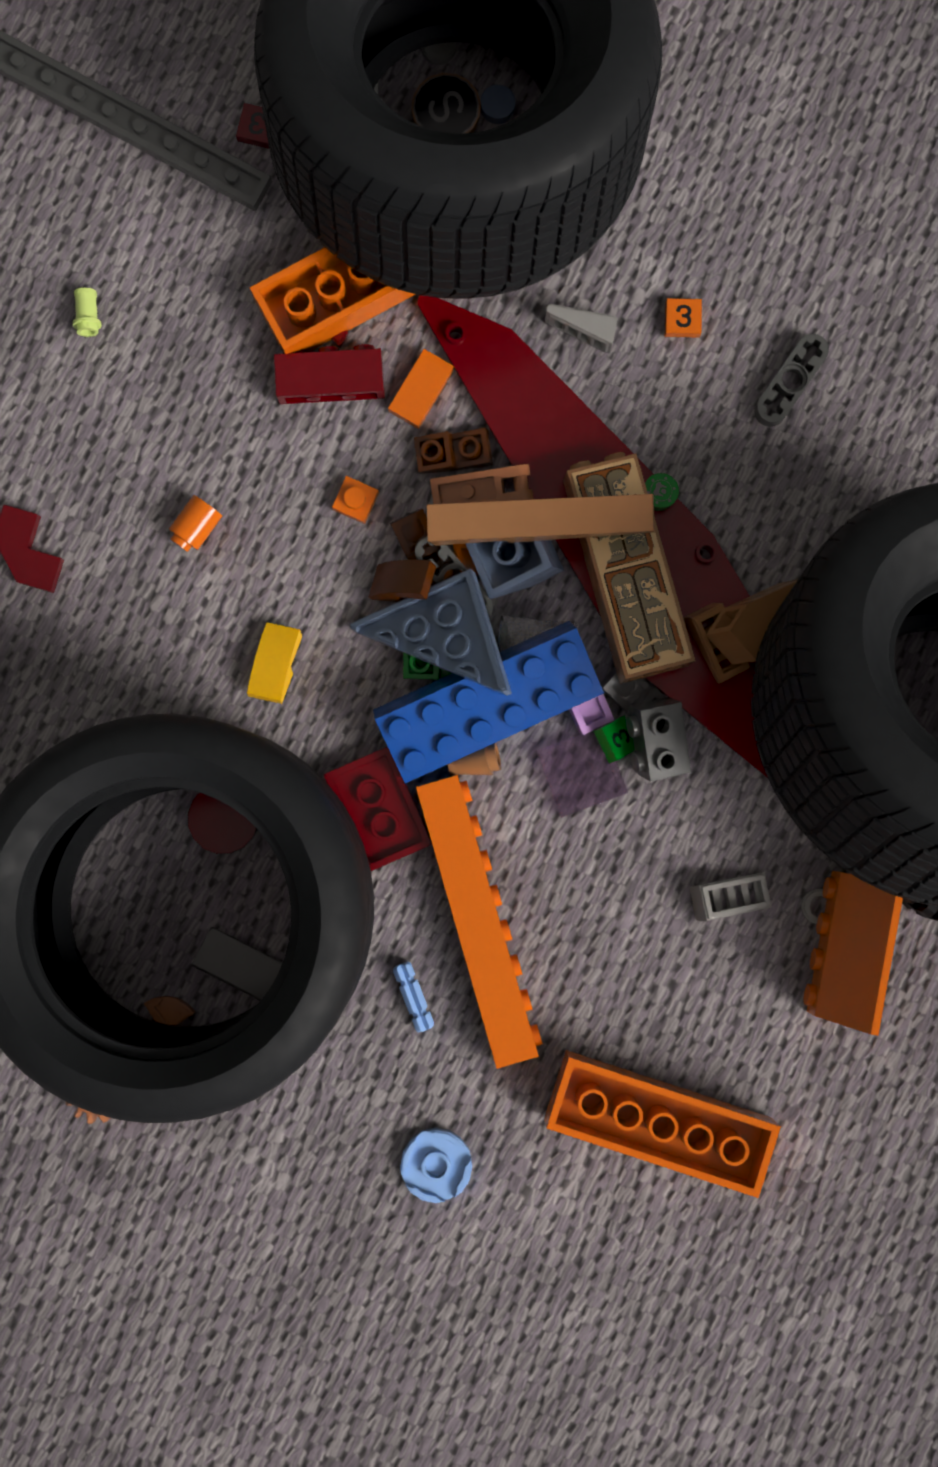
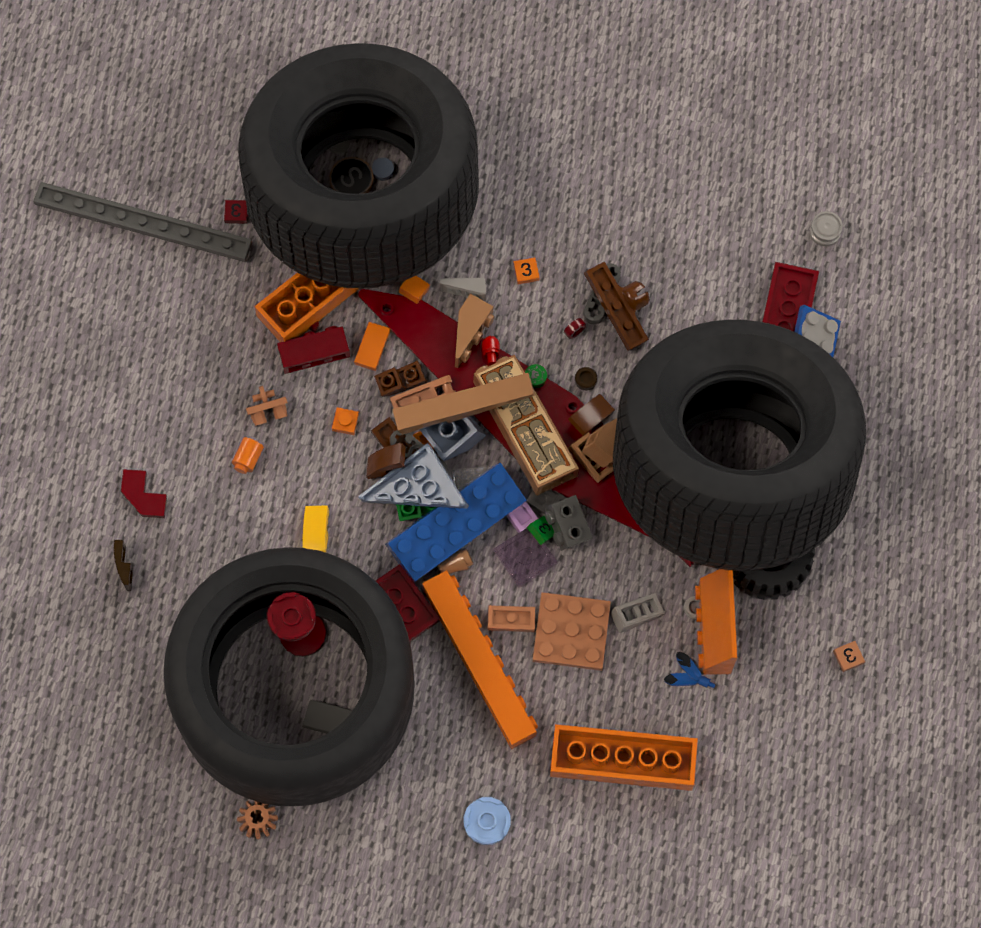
camera: 10 degrees left, 15 degrees down
(86, 319) = (153, 349): yellowish green pin -> none
(177, 845) = (291, 616): none -> dark red tile
(223, 455) = (277, 405): none -> nougat hips
(413, 997) = (448, 717): light blue axle -> none
(505, 311) = (414, 288): none -> orange tile
(539, 866) = (511, 618): none -> nougat plate
(583, 379) = (472, 320): none -> medium nougat slope
(601, 434) = (491, 349): none -> red cylinder
(625, 904) = (571, 631): none -> nougat plate
(732, 573) = (591, 414): none -> reddish brown slope
(735, 511) = (586, 378): none -> dark brown tile
(737, 428) = (575, 328): none -> dark red tile
(791, 1010) = (691, 676): none -> blue piece
(816, 404) = (620, 304): none -> reddish brown plate

